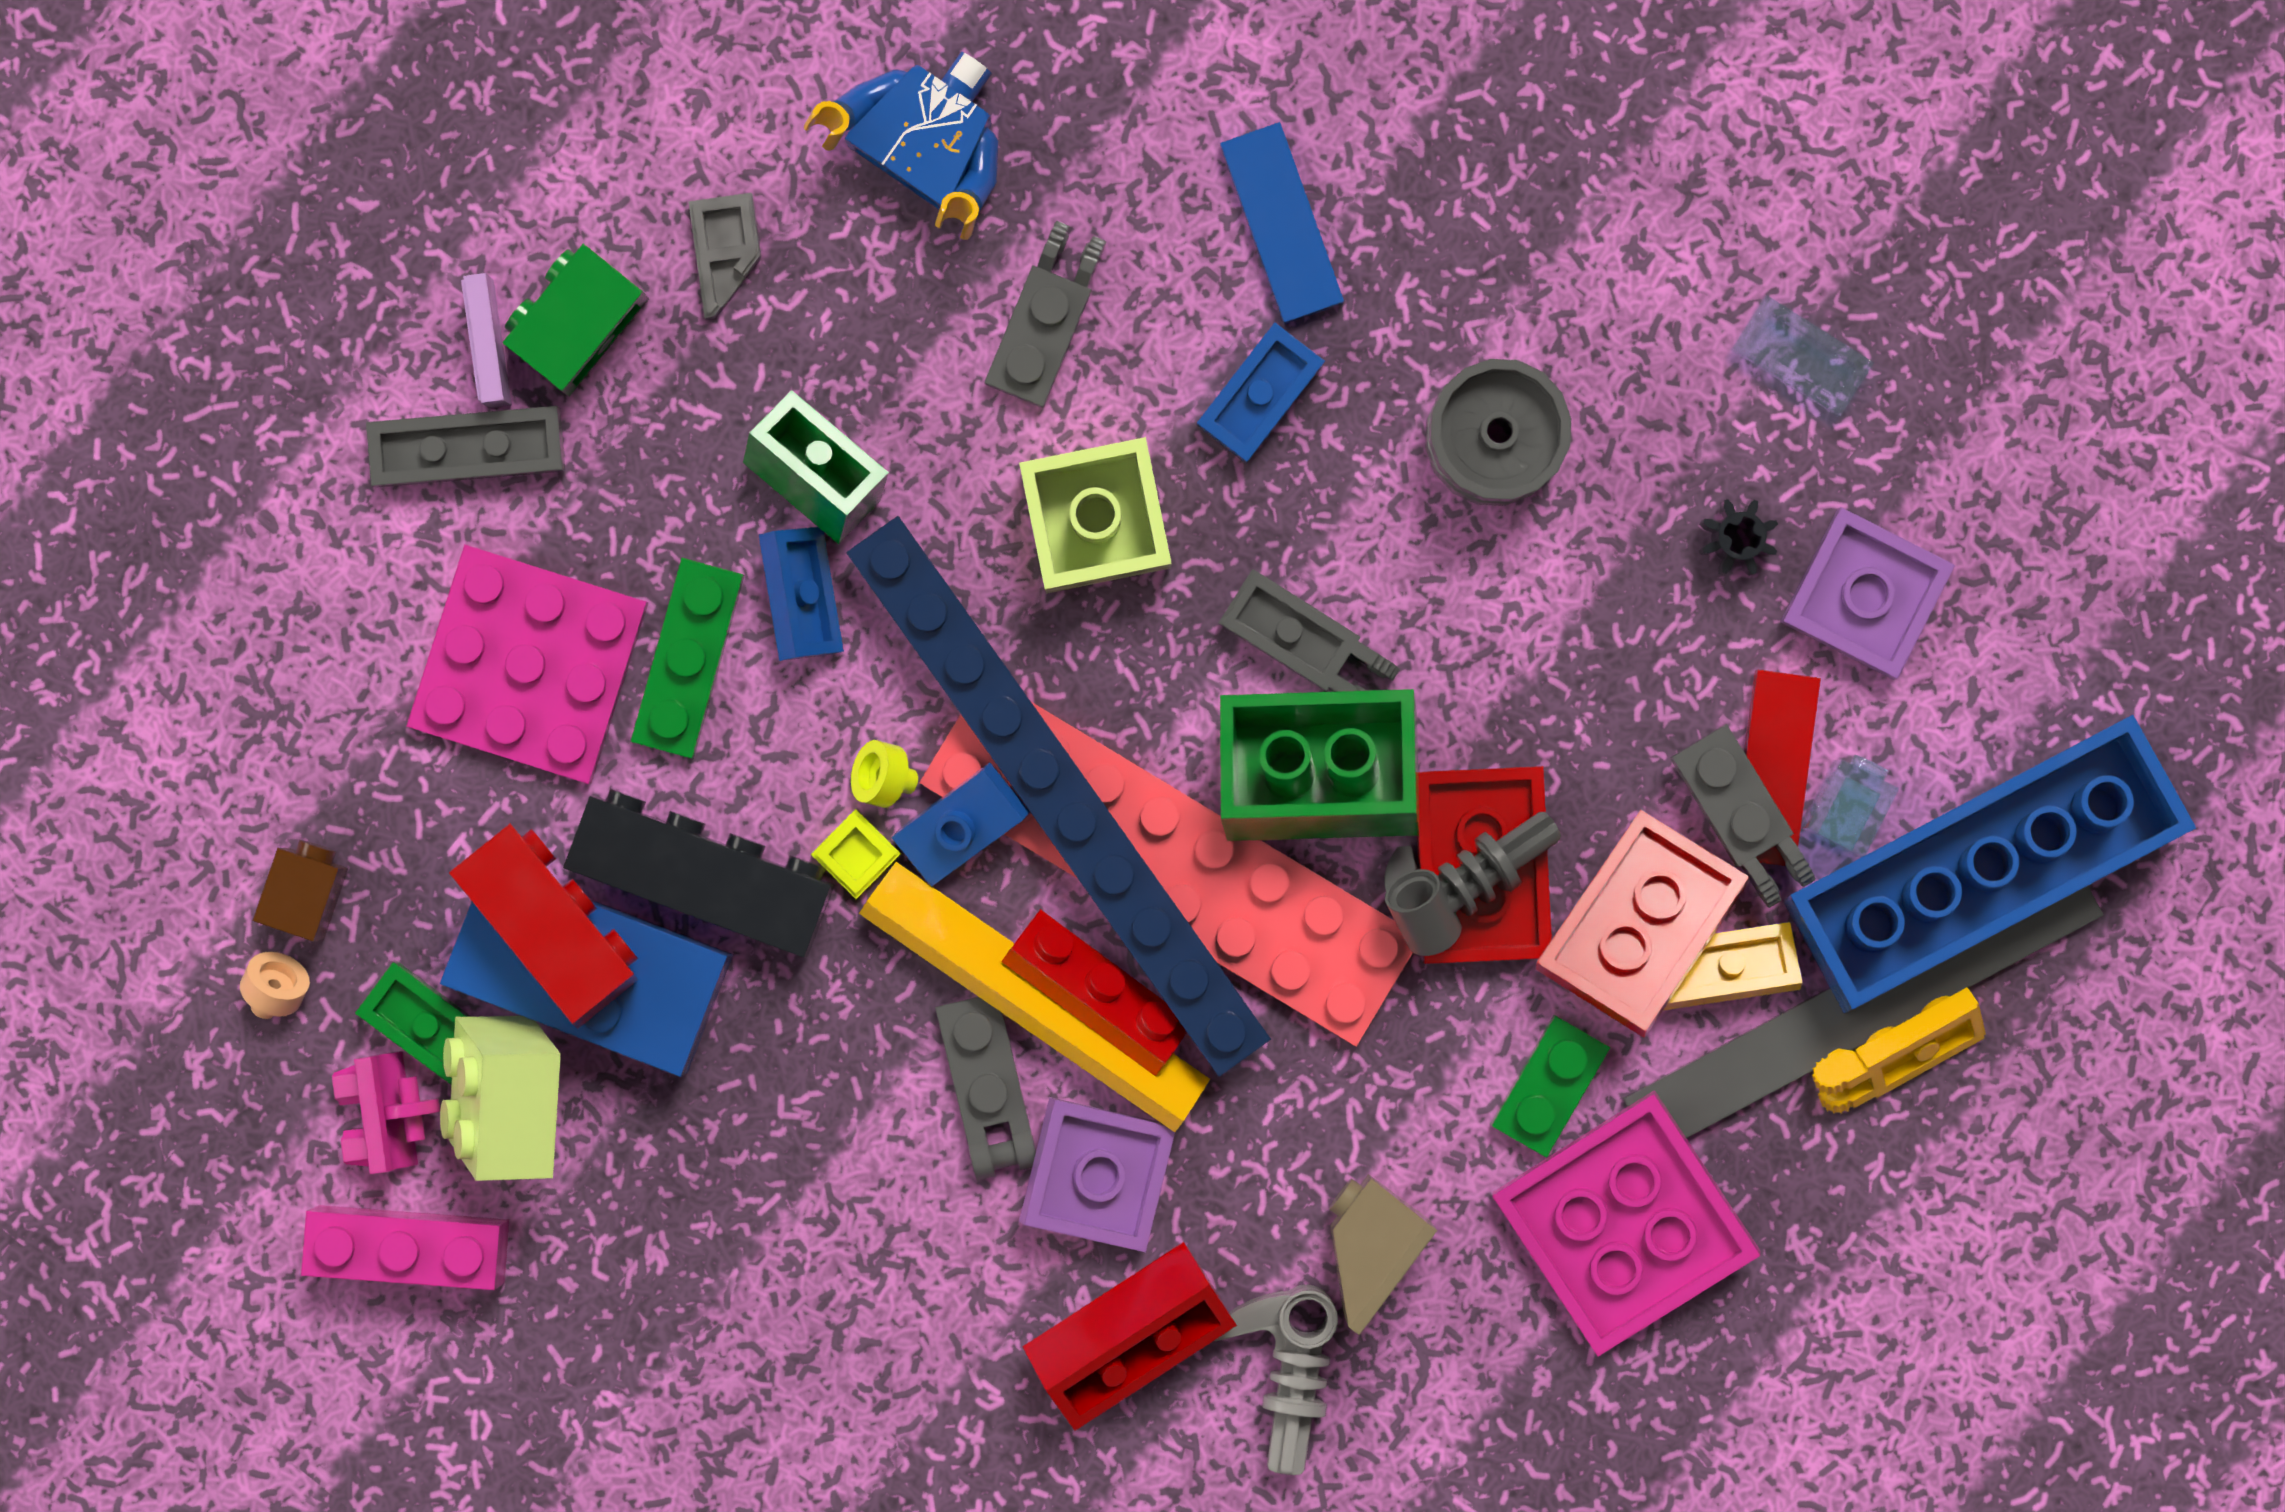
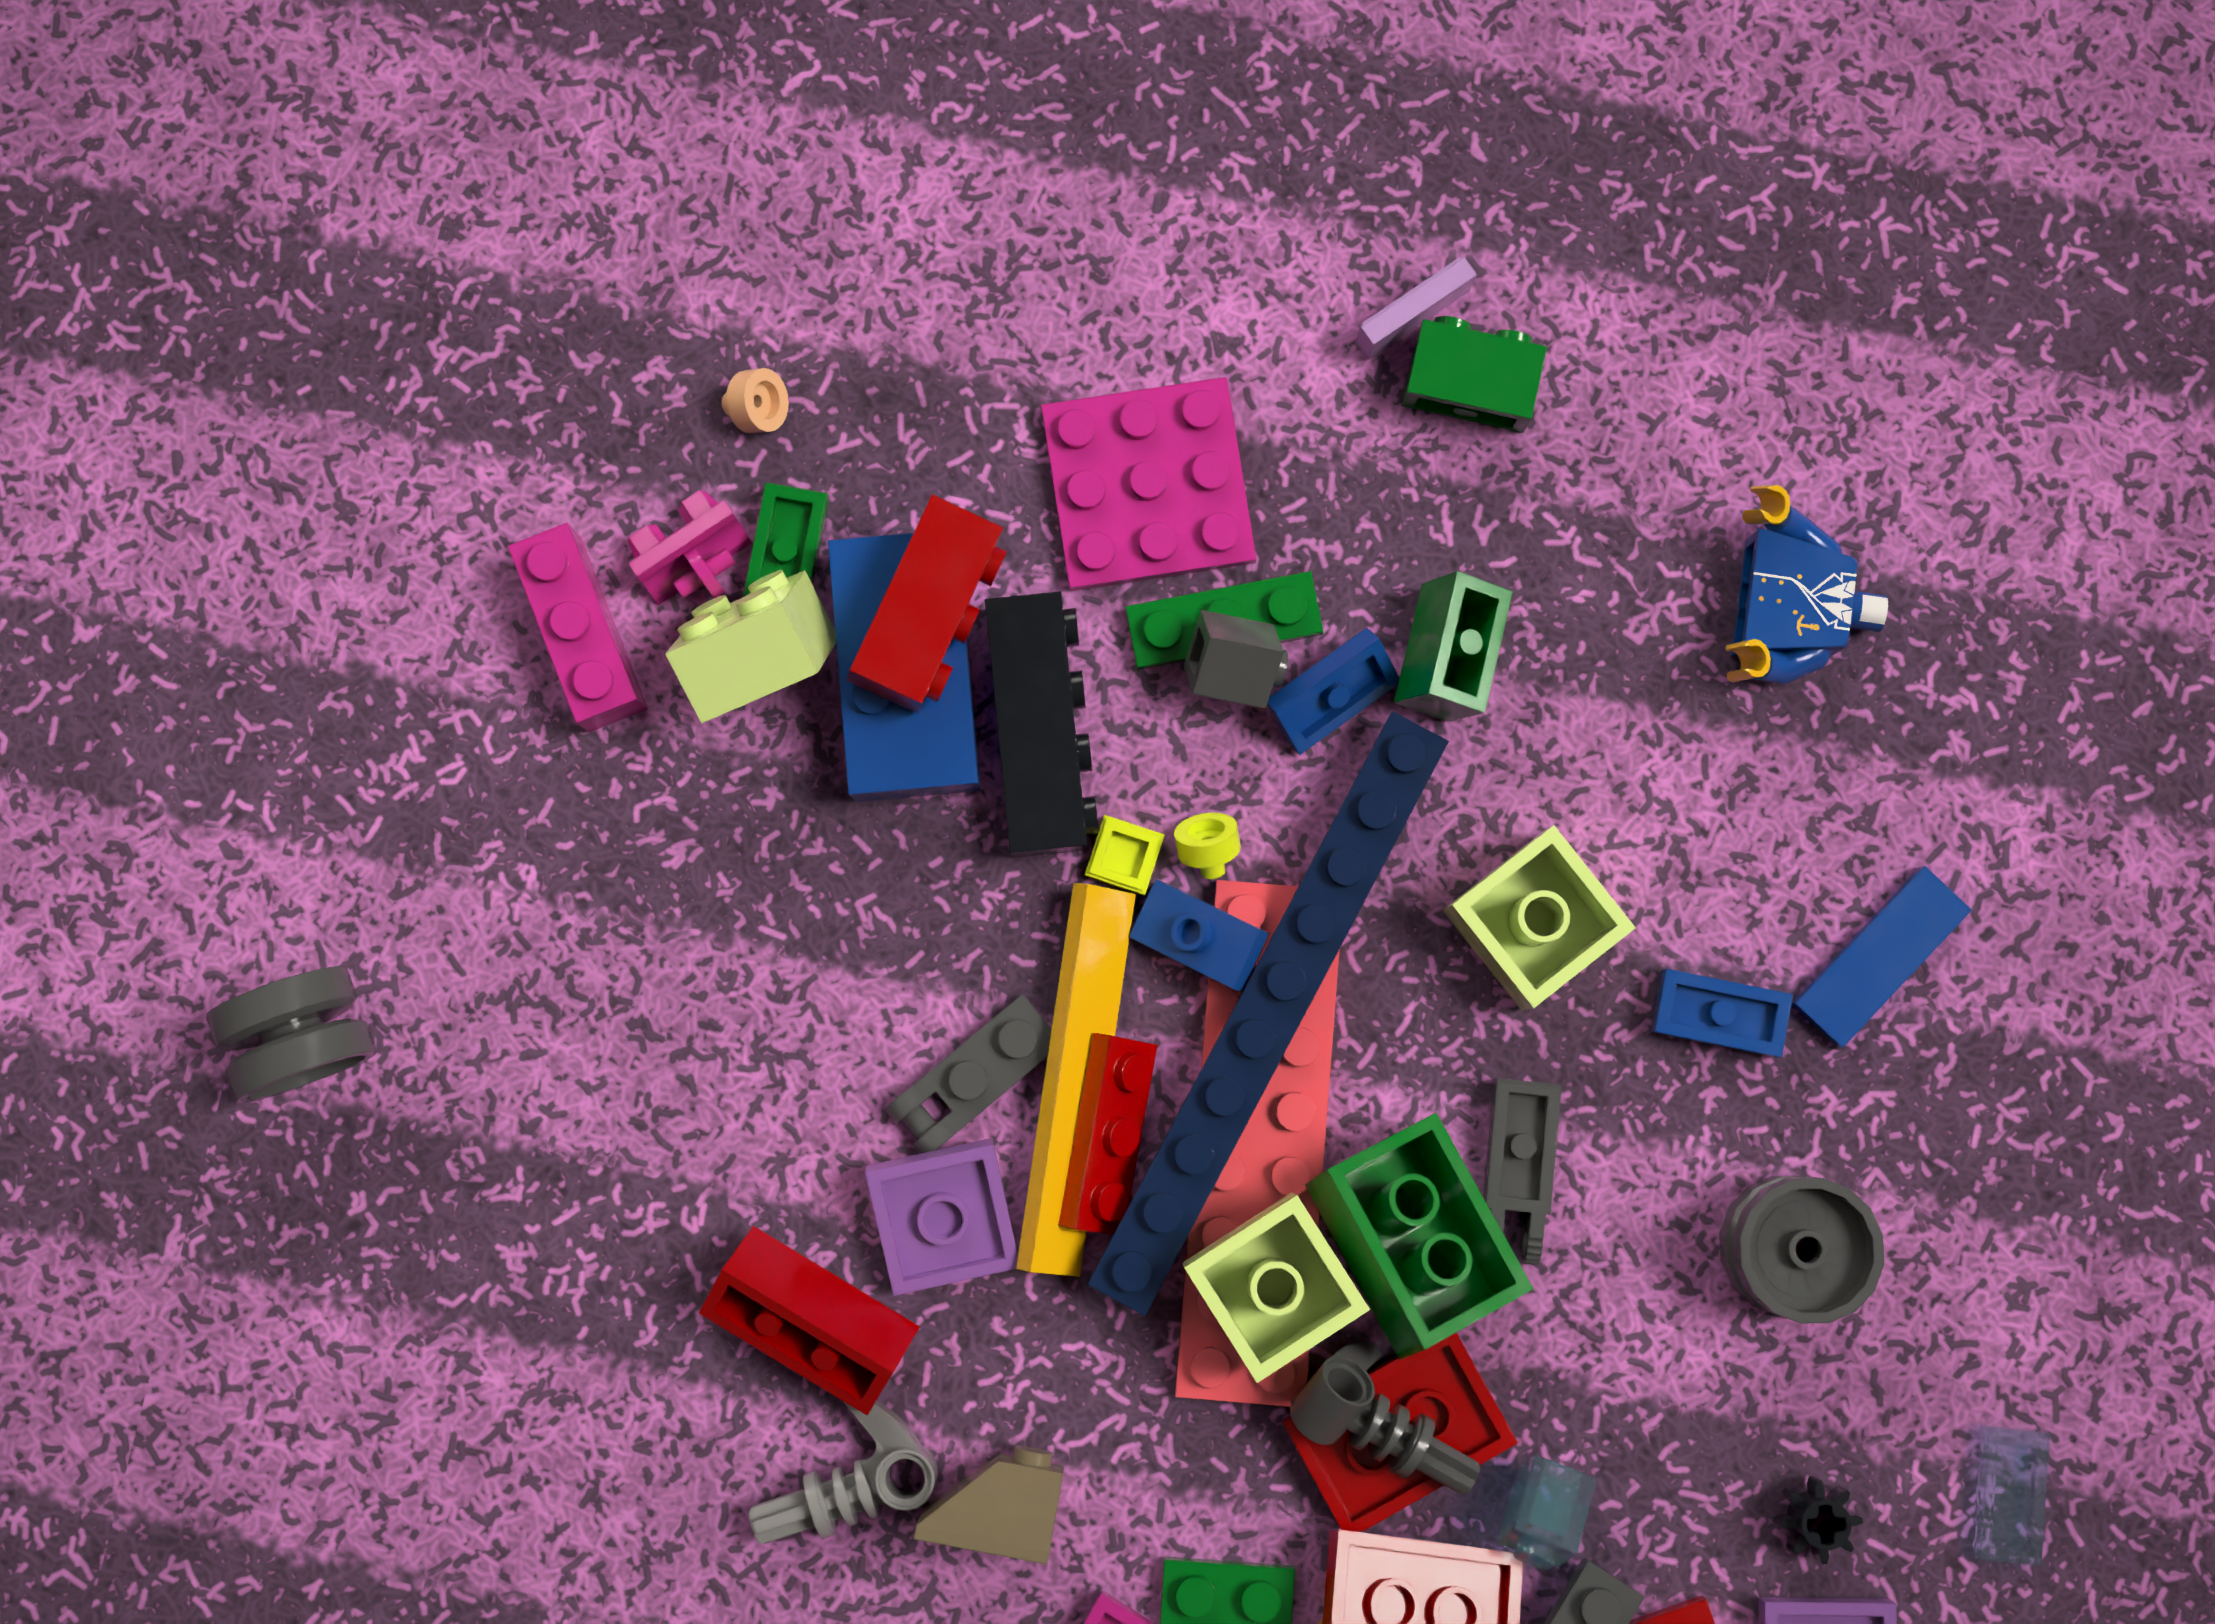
camera: 65 degrees right, 5 degrees down
(301, 891) = (850, 384): reddish brown brick -> none
(465, 446) = (1313, 336): dark grey plate -> none
(724, 247) = (1602, 475): flat silver tile -> none
(729, 669) = (1235, 659): none -> dark grey brick
(1043, 322) = (1682, 787): dark grey hinge -> none
(1300, 914) = (1275, 1286): none -> yellowish green brick
(1614, 772) = (1546, 1513): none -> clear light blue brick

